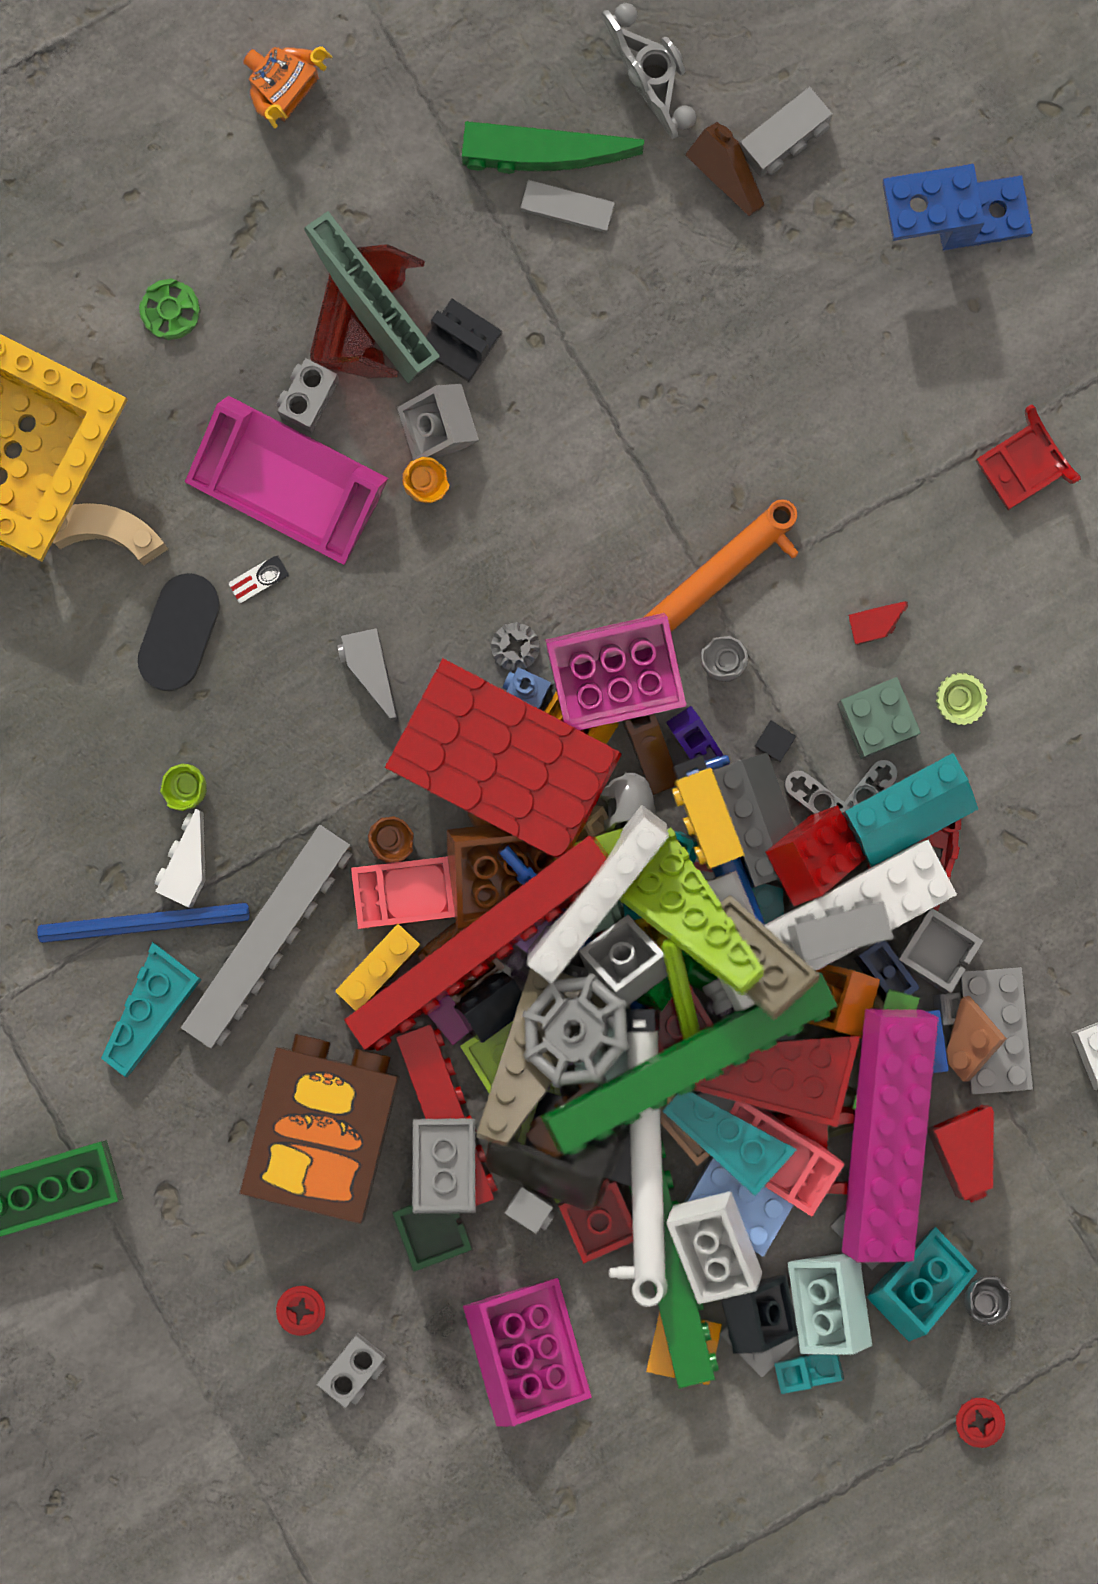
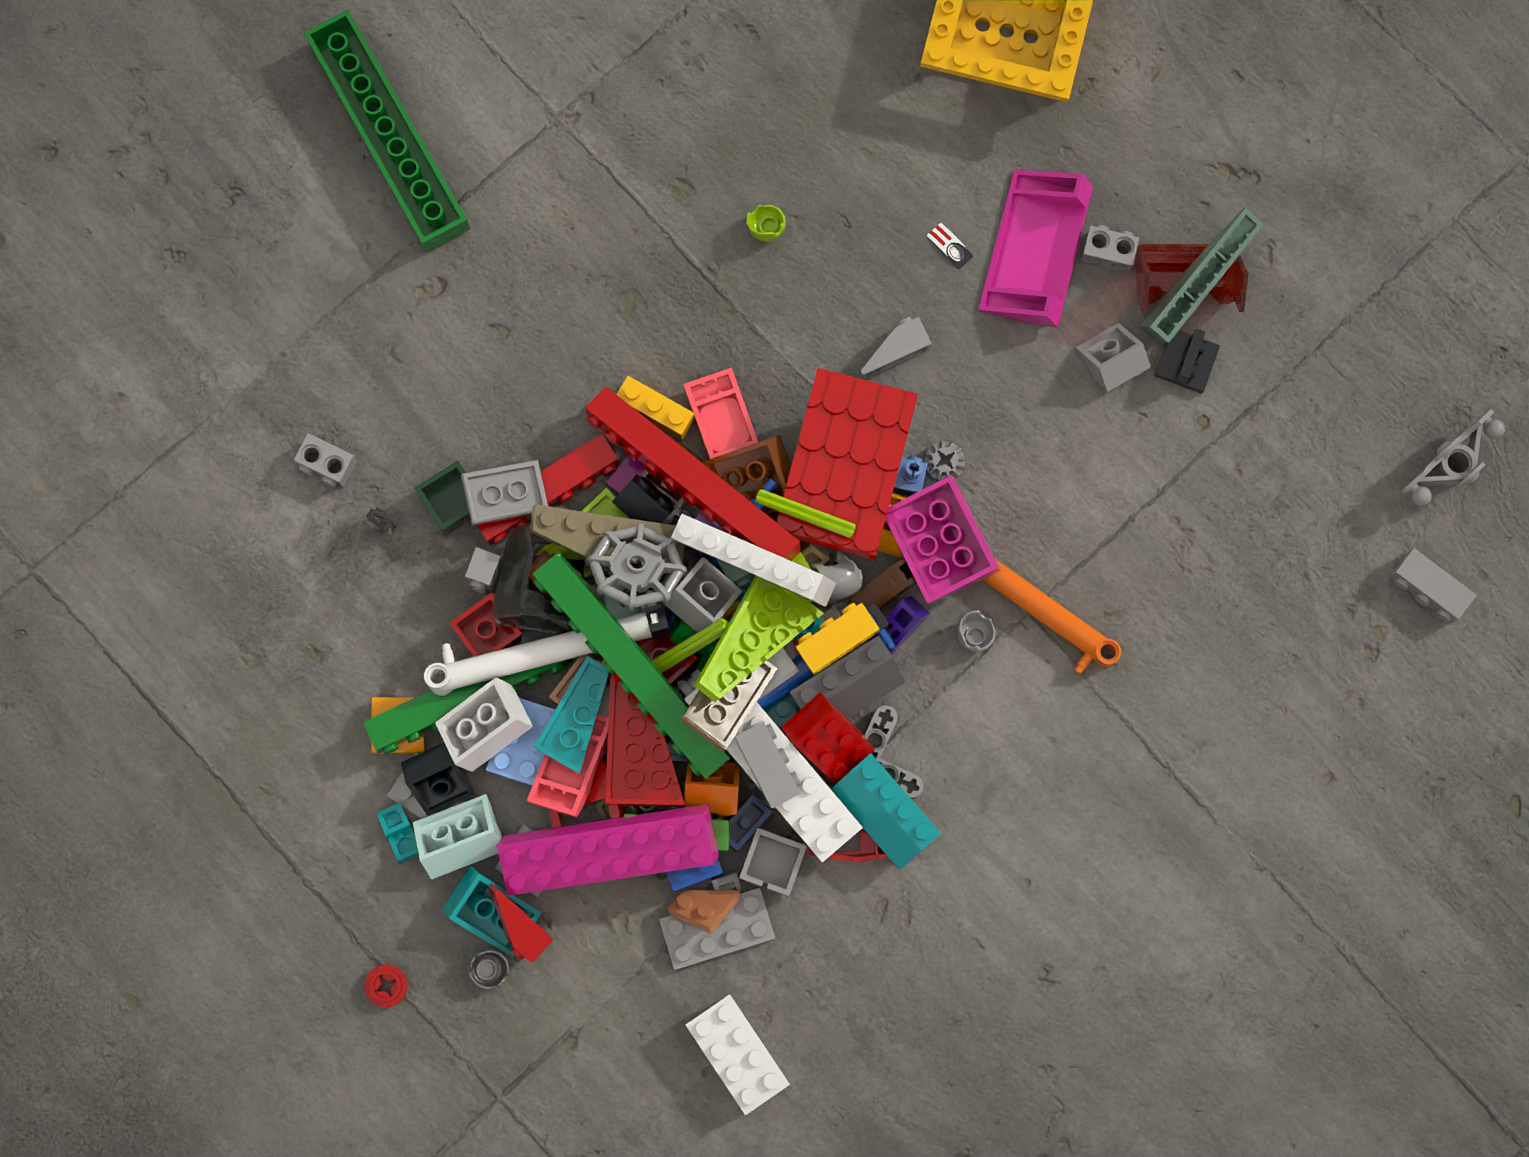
camera: 75 degrees right, 5 degrees down
(110, 523) = (965, 117): tan brick -> none
(143, 922) = (650, 218): blue axle -> none
(155, 1000) = (585, 239): teal wing -> none
(169, 309) = (1151, 126): bright green piece -> none
(178, 632) = (891, 192): black tile -> none
(186, 869) = (702, 240): white slope -> none
(266, 937) = (660, 315): light grey brick -> none
(282, 79) = (1363, 170): orange torso -> none
(288, 1318) = (357, 402): red gear -> none
(321, 1130) = (513, 391): brick -> none
(390, 839) = (762, 395): dark orange hair -> none
(425, 480) = (1063, 356): light orange hair -> none
(527, 1352) = (368, 598): dark pink slope -> none
(540, 149) = (1362, 388): green slope -> none
(554, 821) = (805, 513): none -> lime axle
(567, 206) = (1321, 422): light grey tile -> none
(724, 163) = (1390, 542): reddish brown slope -> none
(775, 741) = (917, 690): black tile -> none
(876, 622) = (1037, 752): red slope -> none
(878, 718) = (957, 771): sand green brick -> none
(956, 207) = (1407, 739): blue bracket -> none
(956, 1252) = (519, 929): none -> red slope
(961, 698) = (990, 837): yellowish green hat -> none
(966, 1151) = (608, 921): red slope -> none
(1025, 463) = (1204, 848): red piece -> none

